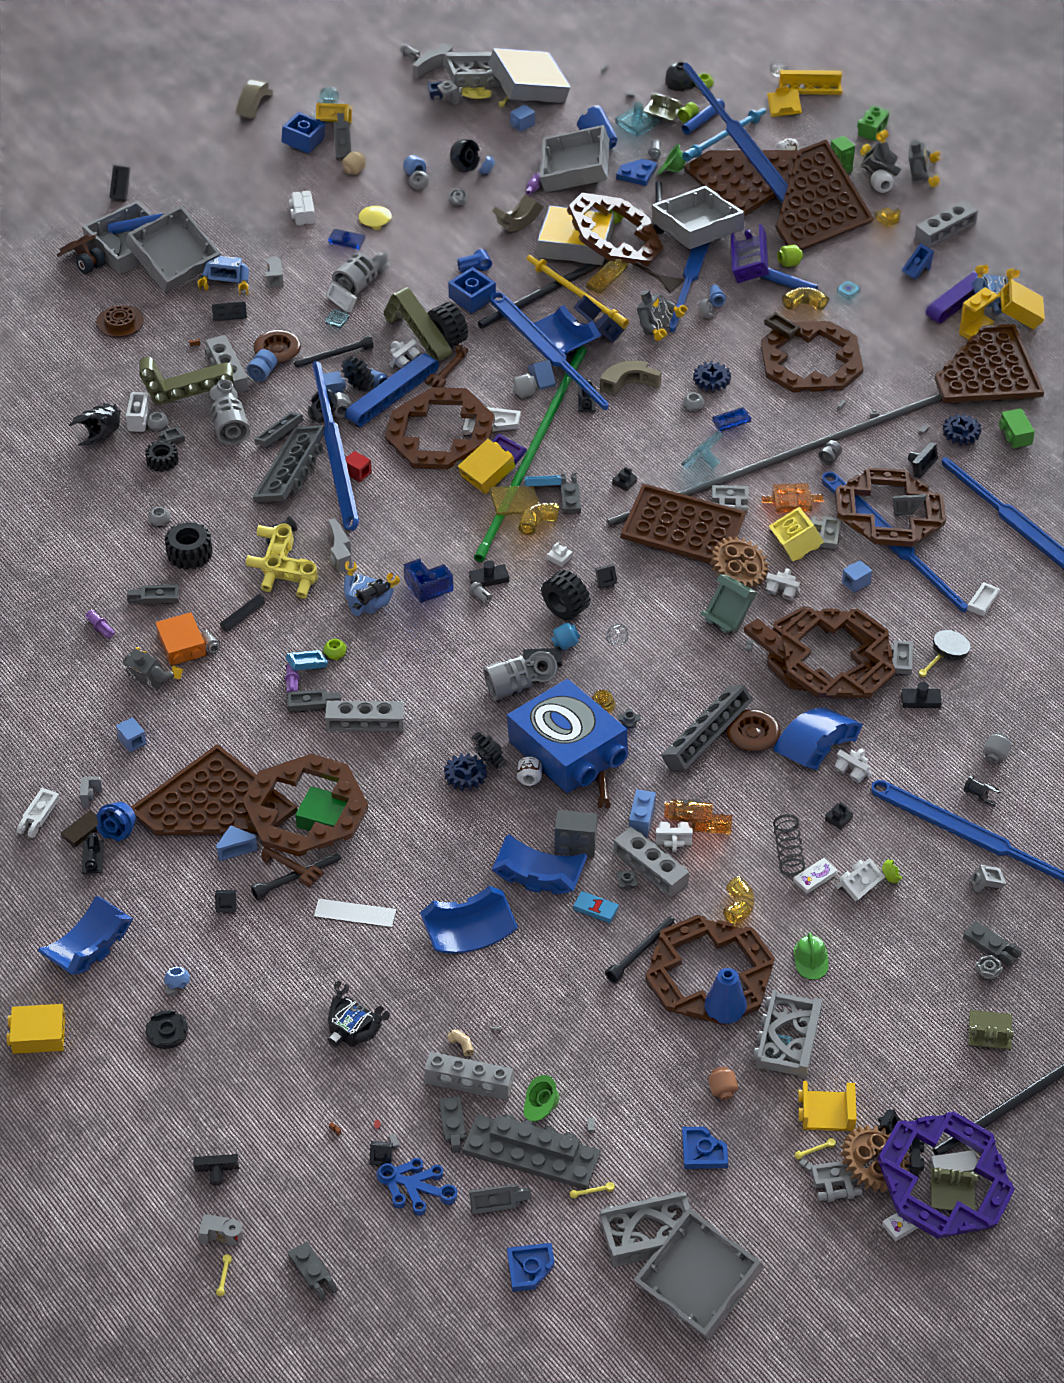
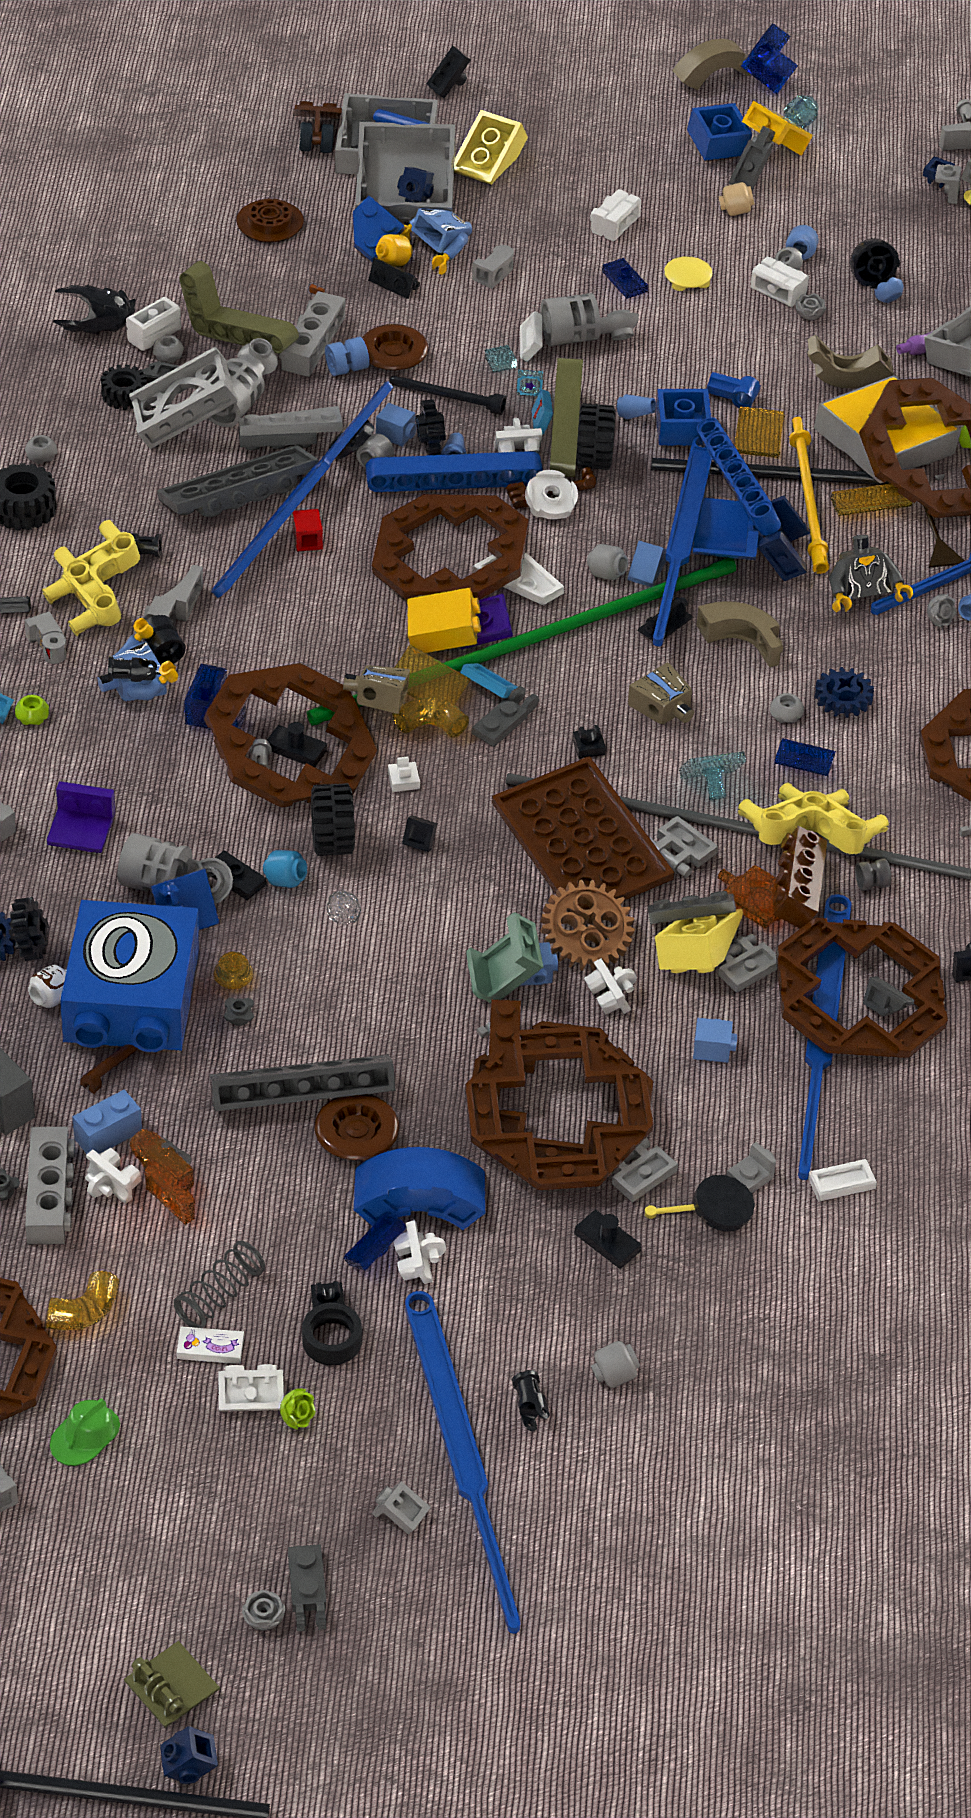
camera: 40 degrees right, 0 degrees up
(184, 247) = (415, 184): none -> dark blue brick
(189, 289) = (372, 223): none -> blue plate
(196, 204) = (490, 147): none -> light yellow slope
(205, 424) = (203, 403): none -> light grey fence
(214, 294) = (394, 249): none -> yellow head
(279, 416) = (302, 421): none -> light grey wing
(283, 79) = (767, 62): none -> clear blue brick
(296, 607) = (48, 635): none -> light grey leg
(364, 567) = (165, 641): none -> black wheel
(371, 321) = (529, 382): none -> clear light blue tile
(399, 331) = (542, 411): none -> dark azure tile
(428, 193) = (779, 281): none -> white brick
(435, 682) = (82, 817): none -> dark purple bracket
(439, 298) = (634, 406): none -> medium blue cone
(454, 377) = (548, 507): none -> white plate
(504, 548) = (269, 686): none -> reddish brown plate
(506, 516) = (379, 687): none -> dark tan torso
(510, 276) = (759, 432): none -> clear yellow piece
(542, 679) = (189, 891): none -> blue hinge
(547, 299) = (738, 476): none -> blue beam
(633, 433) = (662, 695): none -> dark tan torso
(771, 441) = (815, 813): none -> light yellow pin
(774, 523) = (691, 907): none -> dark grey plate
(806, 474) = (800, 877): none -> reddish brown brick
(831, 774) = (374, 1242): none -> clear blue plate
(860, 840) = (326, 1314): none -> black tyre
(943, 619) = (755, 1169): none -> light grey bracket
(1042, 1050) = (188, 1755): none -> dark blue brick

